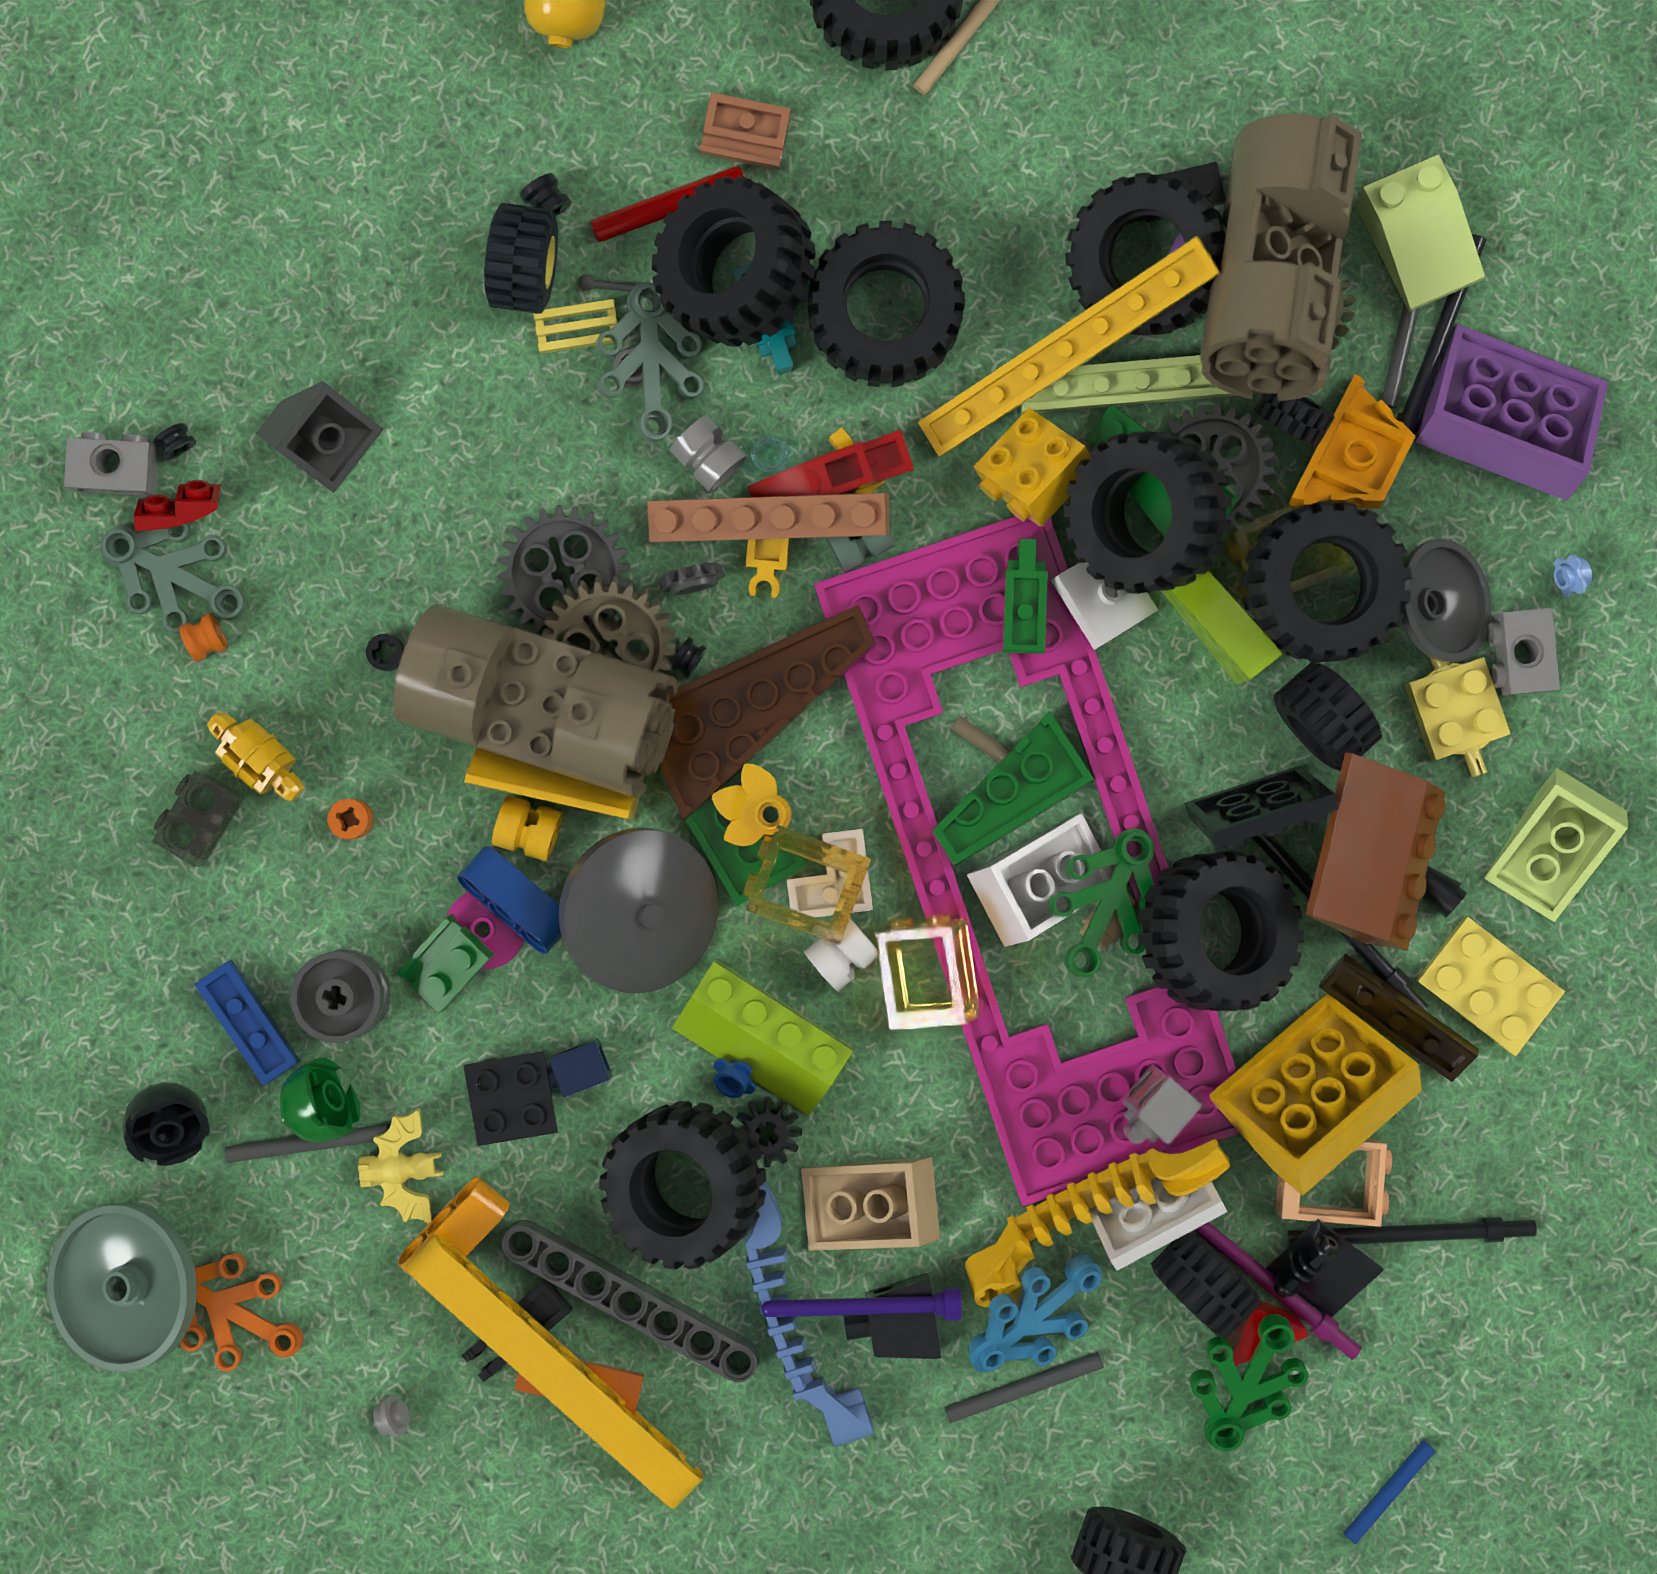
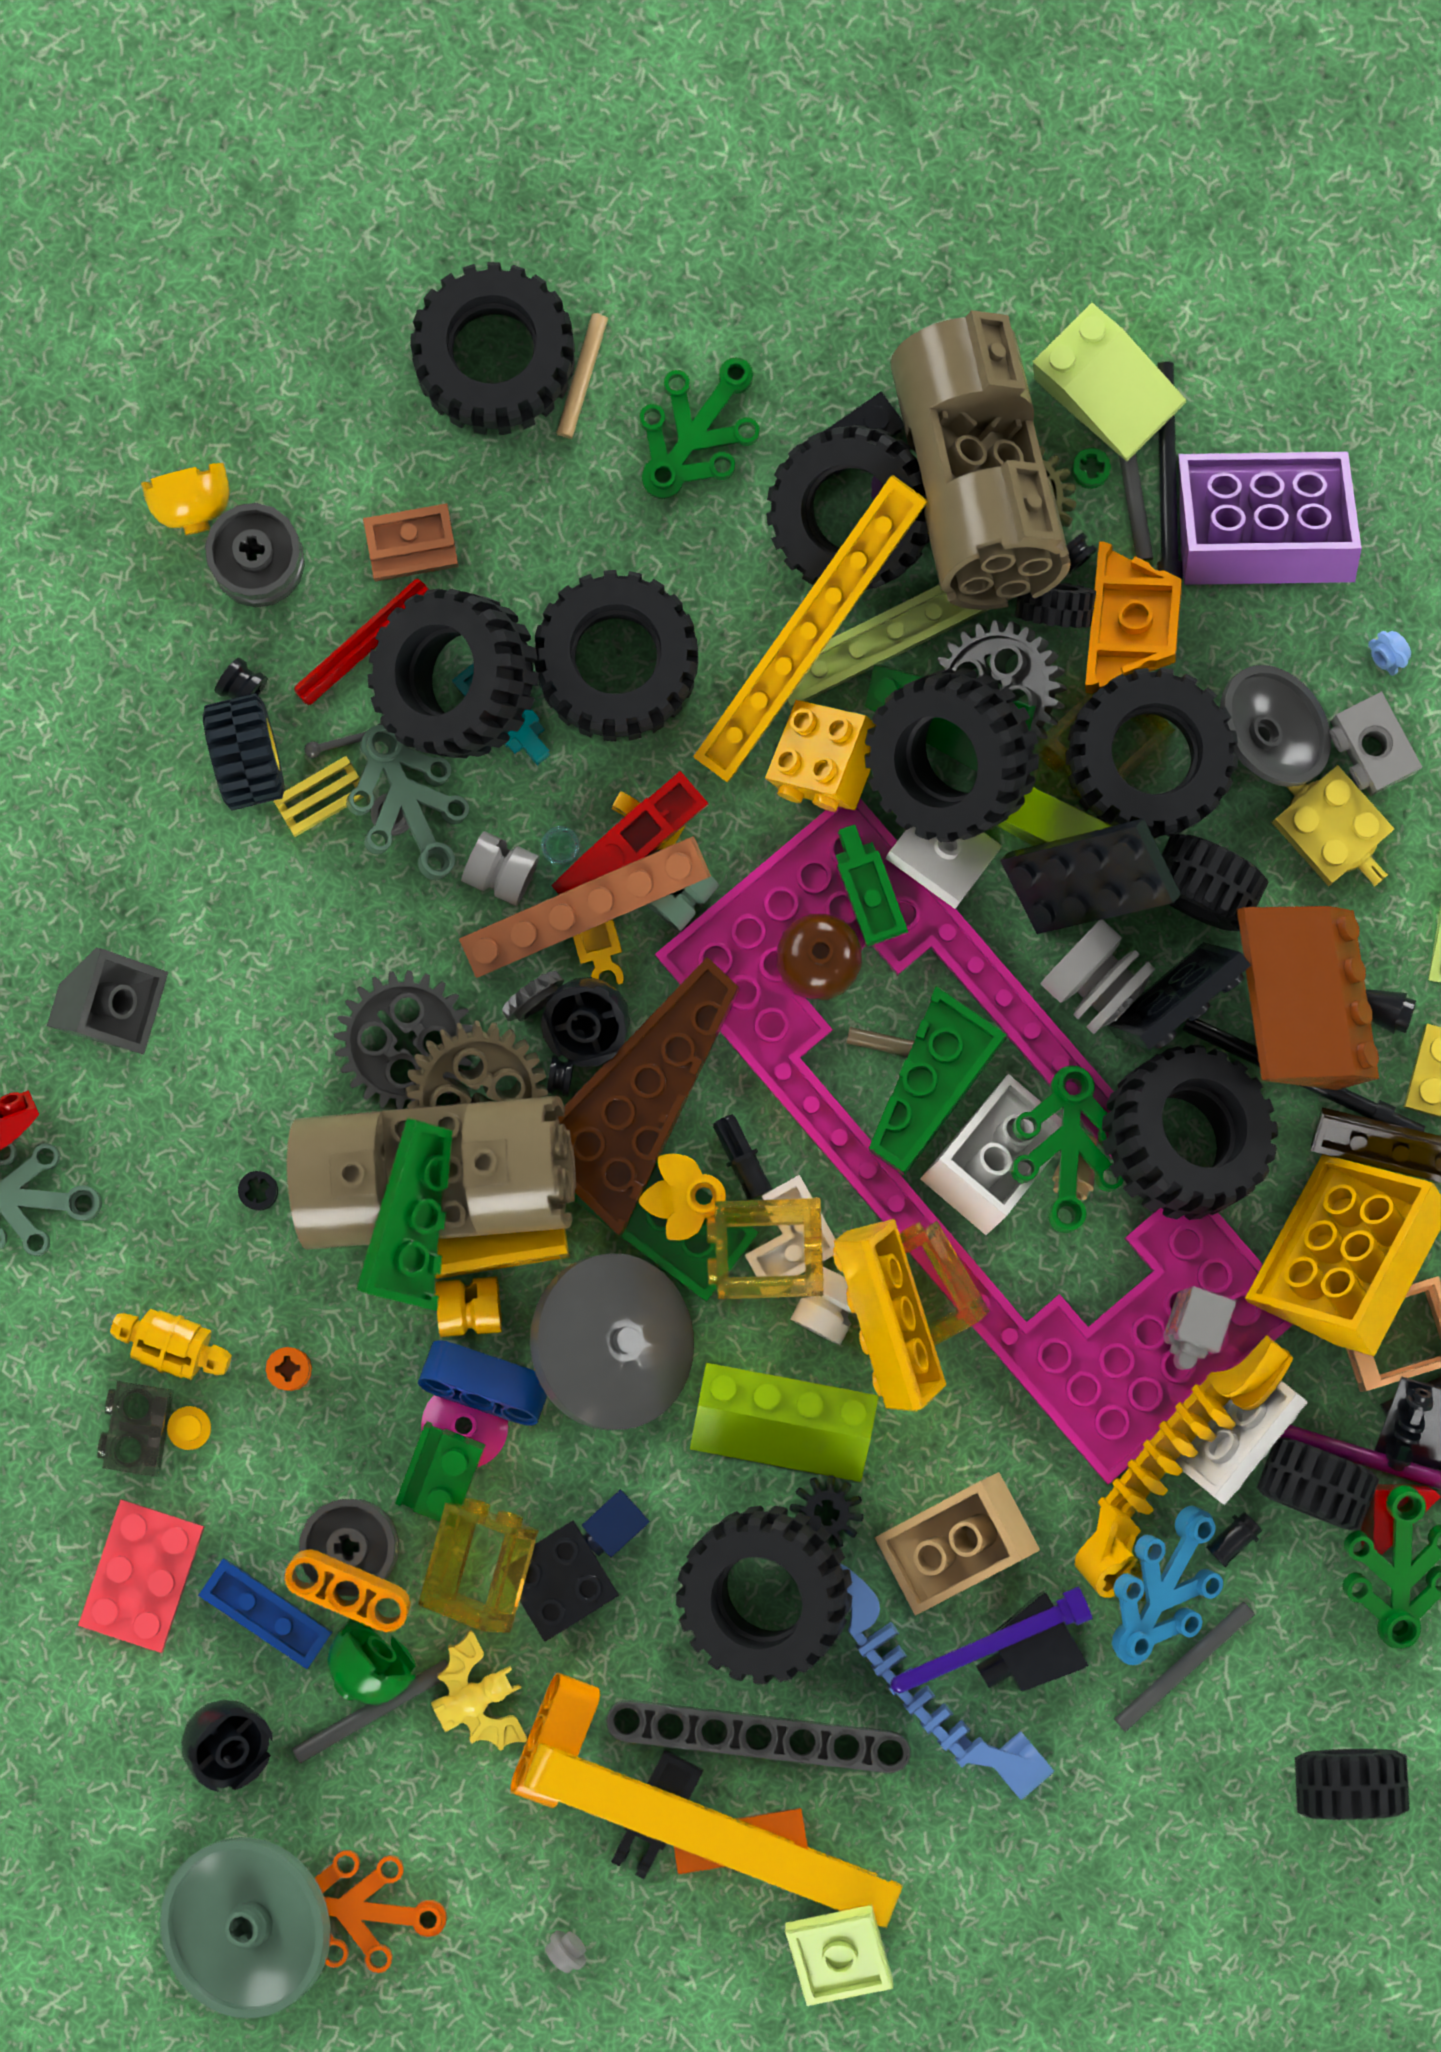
camera: 20 degrees left, 5 degrees down
(153, 946) = (141, 1576): none -> coral plate
(203, 637) = (72, 1247): orange wheel -> none
(244, 835) = (189, 1428): none -> yellow plate
(297, 1033) = (325, 1594): none -> light orange beam
(420, 1044) = (449, 1560): none -> clear yellow window
(488, 748) = (406, 1233): none -> green wing
(598, 63) = (252, 530): none -> dark grey wheel
(624, 1517) = (839, 1955): none -> yellowish green tile
(728, 619) = (585, 1021): none -> black cylinder
(733, 1078) = (771, 1472): blue plate -> none
(818, 792) = (741, 1157): none -> black axle
(890, 987) = (889, 1315): none -> yellow slope
(957, 644) = (819, 956): none -> reddish brown cylinder
(1034, 133) = (695, 434): none -> green plant
(1113, 1296) = (1234, 1538): none -> black pin
(1196, 761) = (1098, 976): none -> light grey wheel
(1227, 670) = (1090, 876): none -> black plate
(1335, 376) = (1079, 552): none -> black bush
(1386, 302) = (1101, 460): none -> green bush

